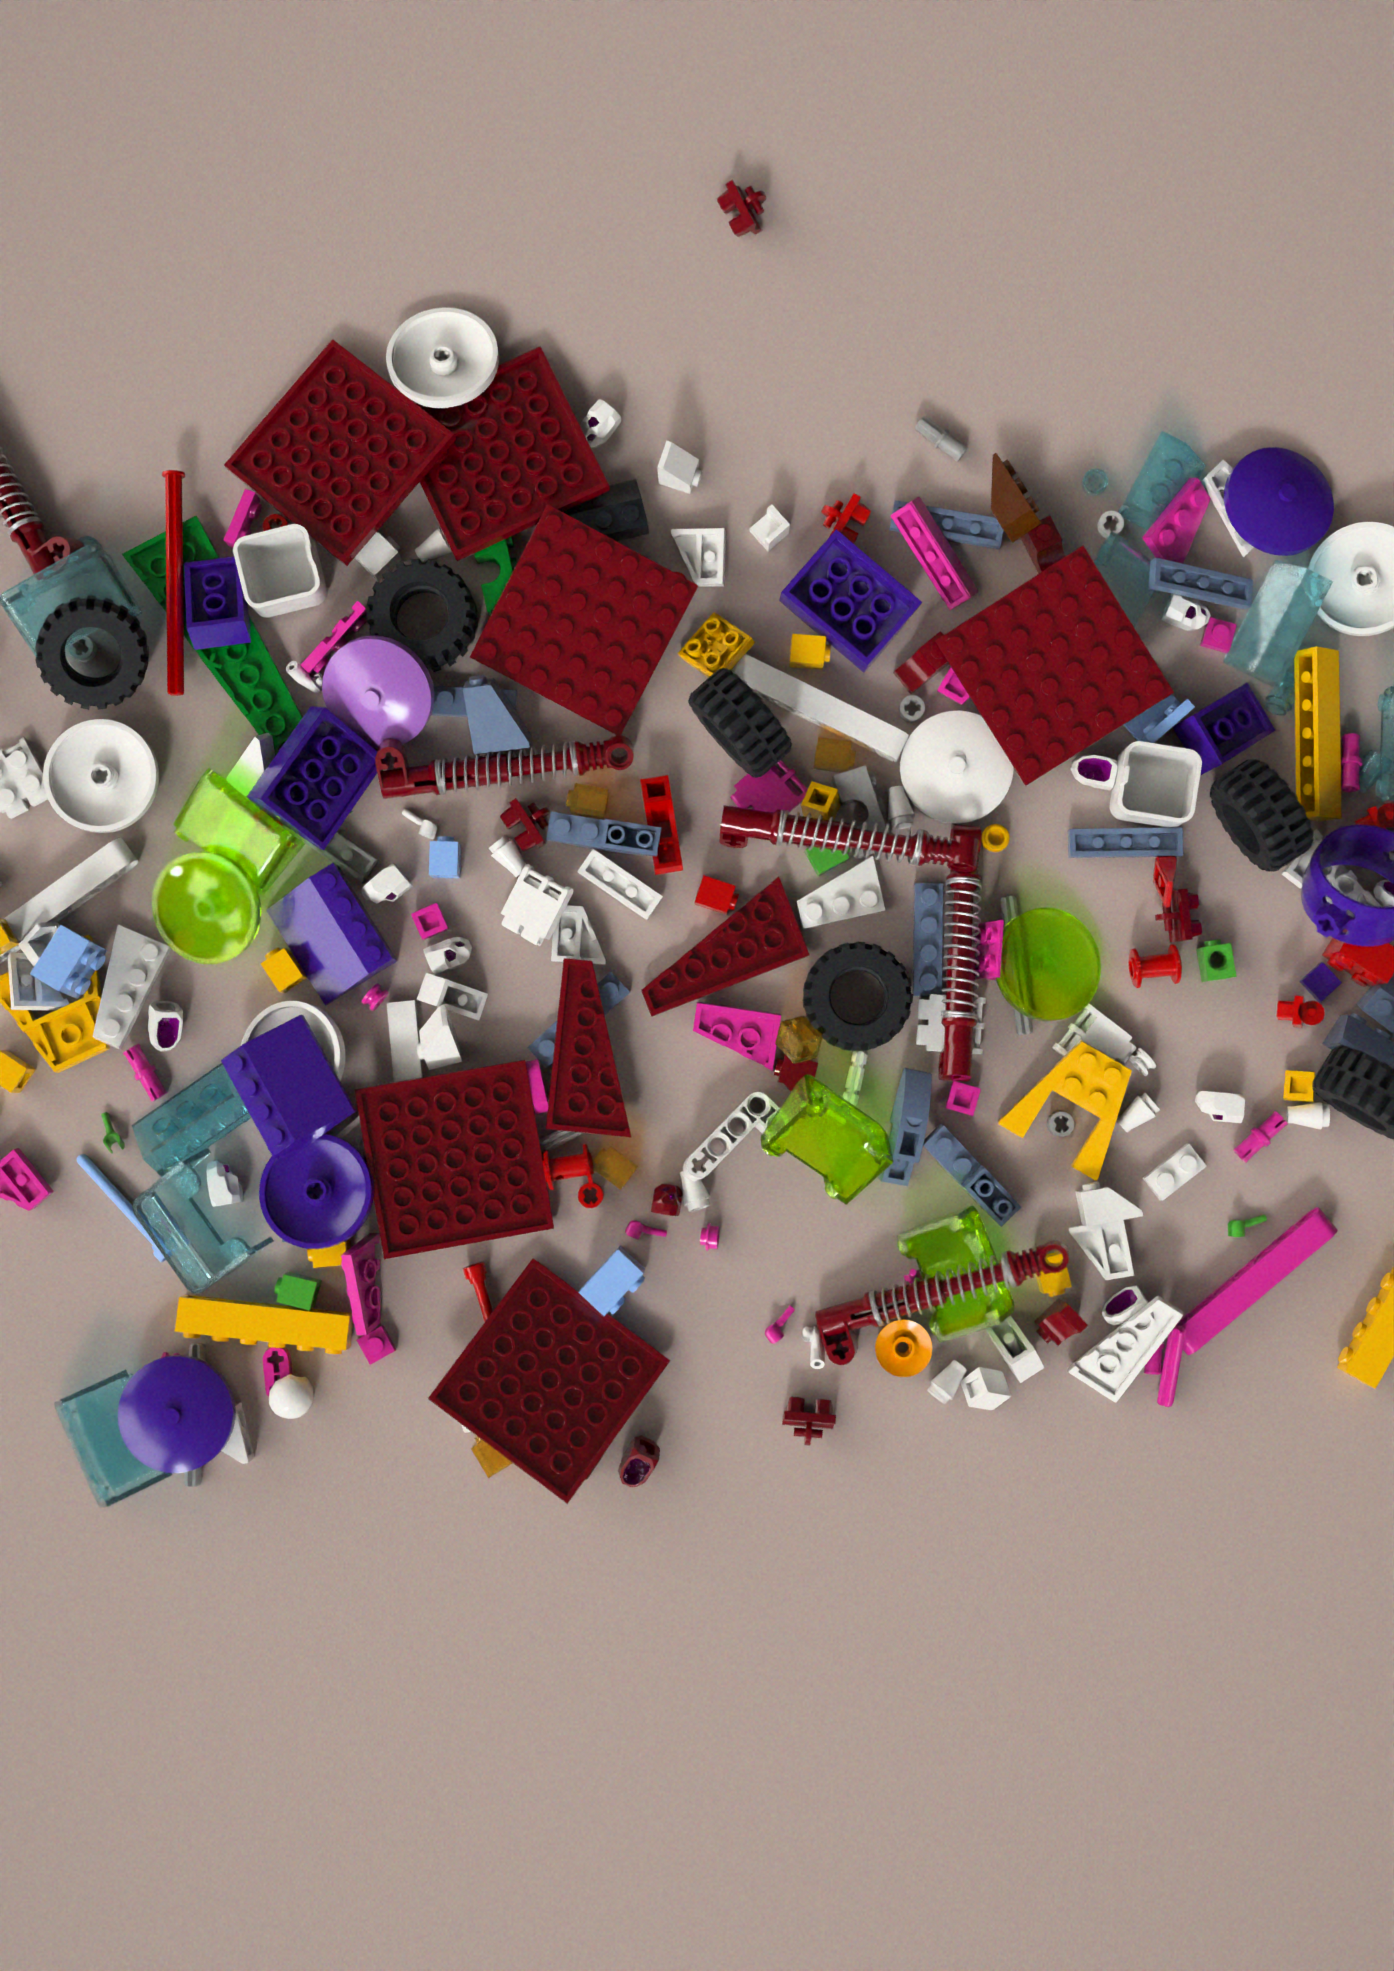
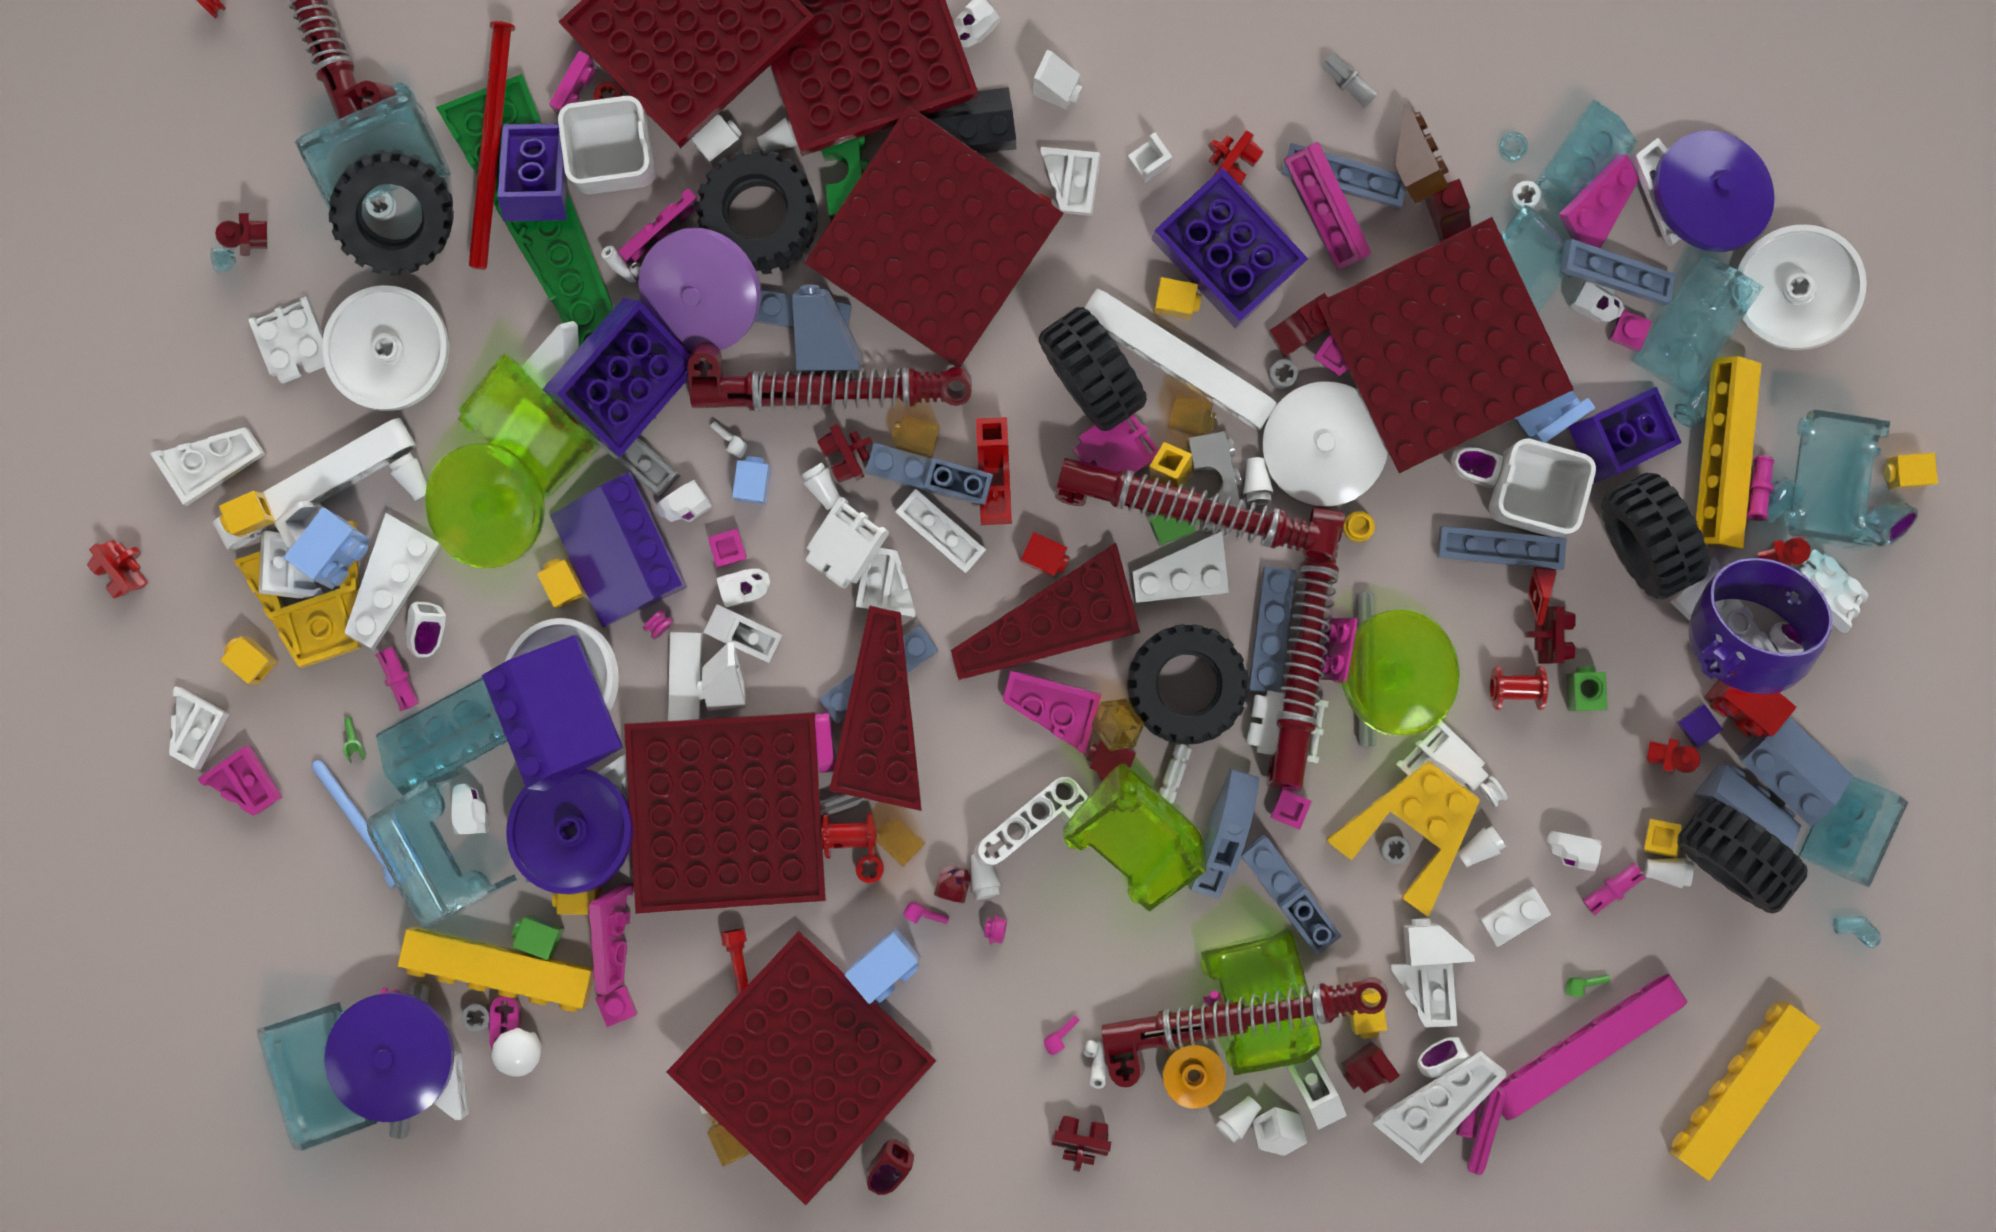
camera: 10 degrees right, 0 degrees up
(135, 888) = (409, 475): none -> white cone
(254, 1377) = (474, 1008): none -> light grey bush
(716, 646) = (1075, 281): yellow tile -> none

